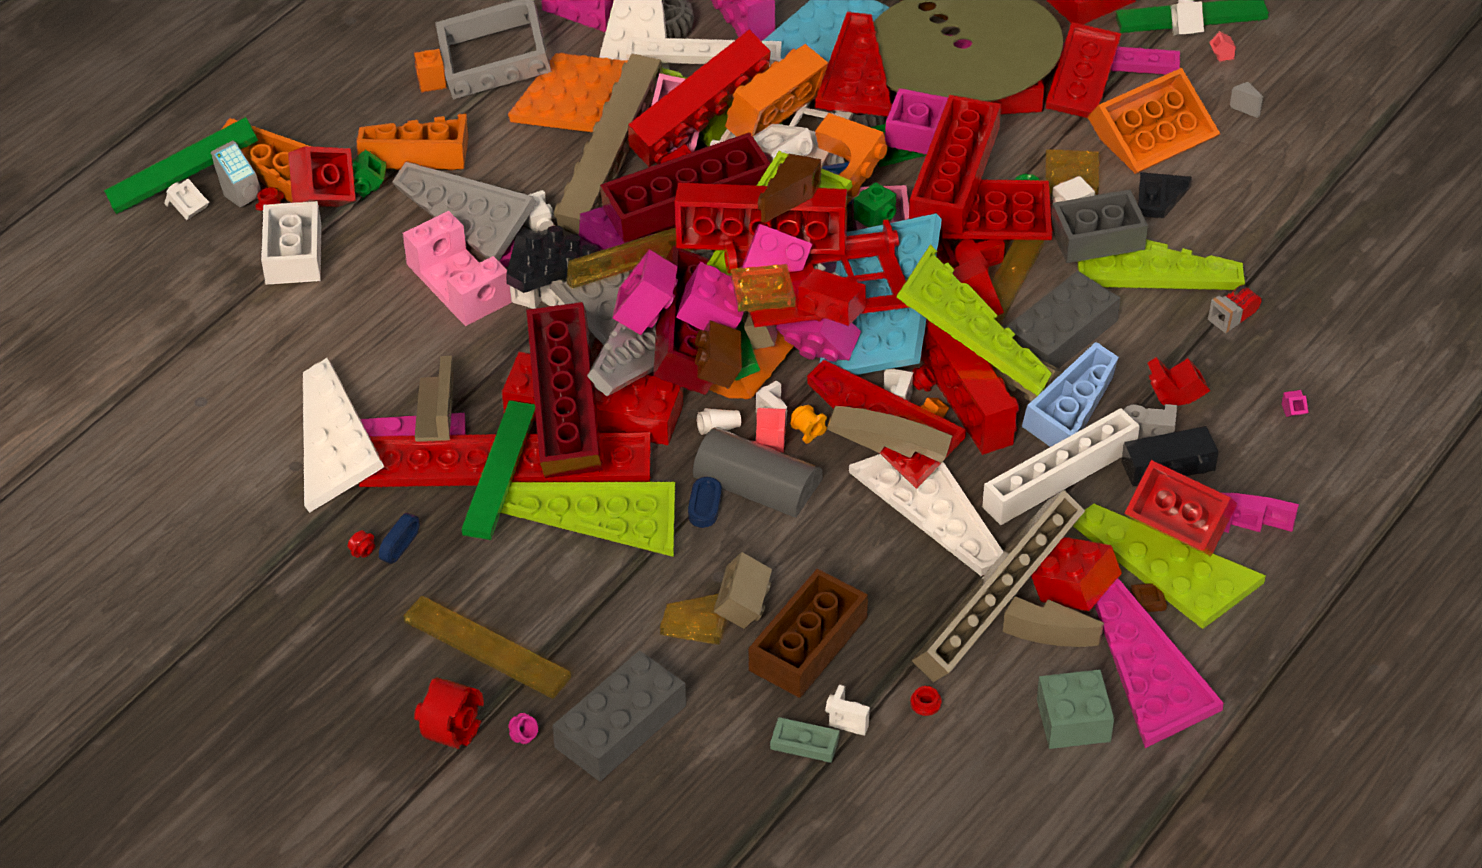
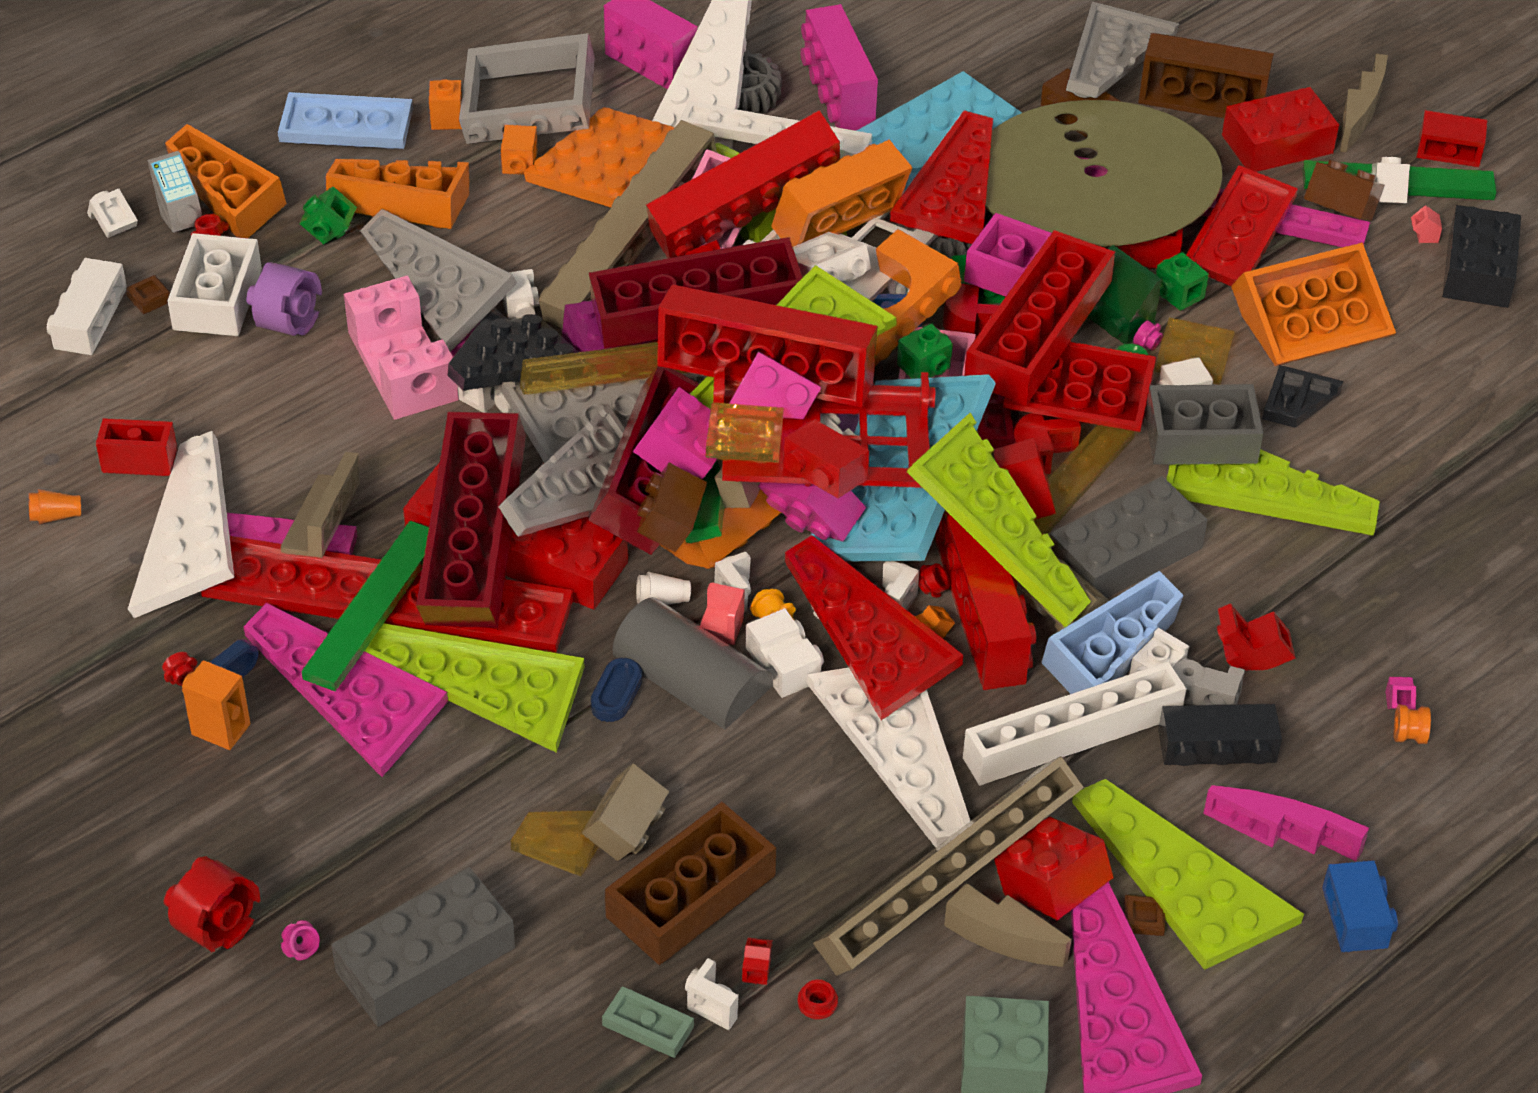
camera: 10 degrees right, 0 degrees up
(177, 166) = (110, 172): green tile -> none
(191, 276) = (87, 306): none -> white brick
(217, 437) = (53, 506): none -> orange cone
(236, 259) = (148, 294): none -> reddish brown tile
(272, 380) = (136, 447): none -> red brick
(322, 176) = (272, 210): red brick -> none
(351, 95) = (345, 120): none -> light blue plate
(352, 245) = (284, 299): none -> medium lavender brick
(402, 565) = (216, 704): none -> orange brick
(487, 647) = (293, 827): clear yellow tile -> none
(499, 96) = (518, 148): none -> orange brick
(522, 544) = (375, 705): none -> dark pink wing
(645, 293) = (605, 415): dark pink brick -> none
(791, 186) = (805, 310): reddish brown slope -> none
(825, 450) = (781, 648): none -> white brick
(872, 681) = (757, 961): none -> red piece
(895, 173) = (964, 313): none -> red brick
(896, 433) = (868, 644): dark tan slope -> none
(1015, 140) = (1128, 299): none -> dark green slope
(1034, 165) = (1148, 335): none -> dark pink plate
(1048, 119) = (1182, 281): none -> green brick
(1109, 402) = (1159, 650): none -> white brick
(1155, 30) = (1344, 191): none -> reddish brown brick
(1181, 508) = (1210, 806): red brick -> none
(1235, 307) = (1355, 556): leg -> none
(1246, 99) = (1439, 295): light grey slope -> none
(1272, 62) = (1482, 256): none -> black brick
(1304, 562) = (1359, 906): none -> blue brick
(1308, 424) = (1412, 724): none -> orange wheel

